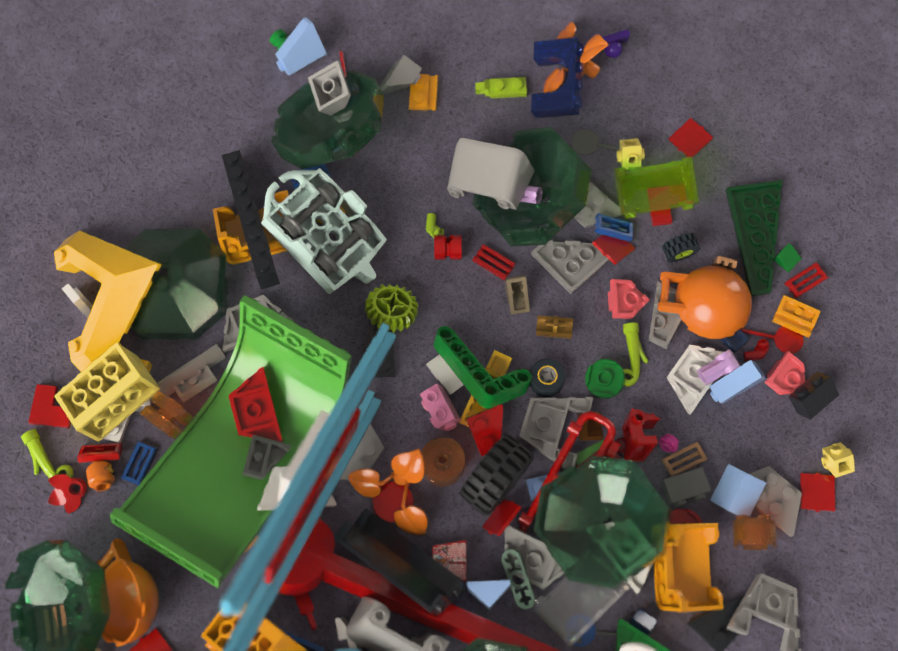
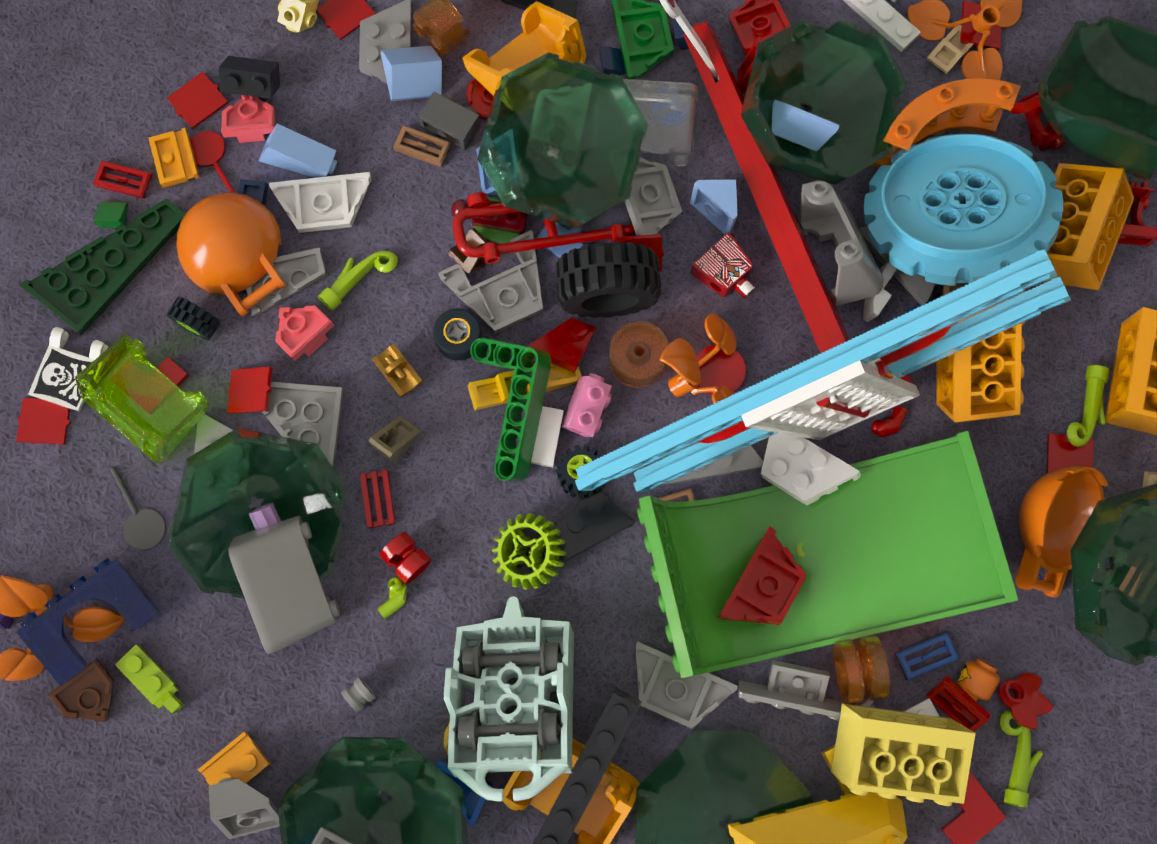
camera: 135 degrees left, 5 degrees up
(263, 456) = (804, 527): dark grey wing -> none
(401, 170) = (358, 695): none -> light grey wheel
(401, 562) = (772, 292): black panel -> none
(412, 368) = (567, 468): none -> black wheel
(521, 54) = (86, 694): none -> reddish brown plate
(528, 591) = (670, 197): sand green beam -> none
(605, 378) = (407, 279): green tile -> none
(614, 229) = (236, 421): blue tile -> none
(630, 153) = (120, 461): light yellow brick -> none
(637, 443) = (440, 203): red tile -> none
(669, 443) = (419, 169): dark pink plate -> none
(710, 166) = (57, 372): none -> flag
(722, 365) = (292, 176): lavender piece -> none
(725, 262) = (174, 261): medium nougat tile -> none
(759, 352) = (246, 163): red arm -> none
(826, 358) = (197, 100): none -> red piece

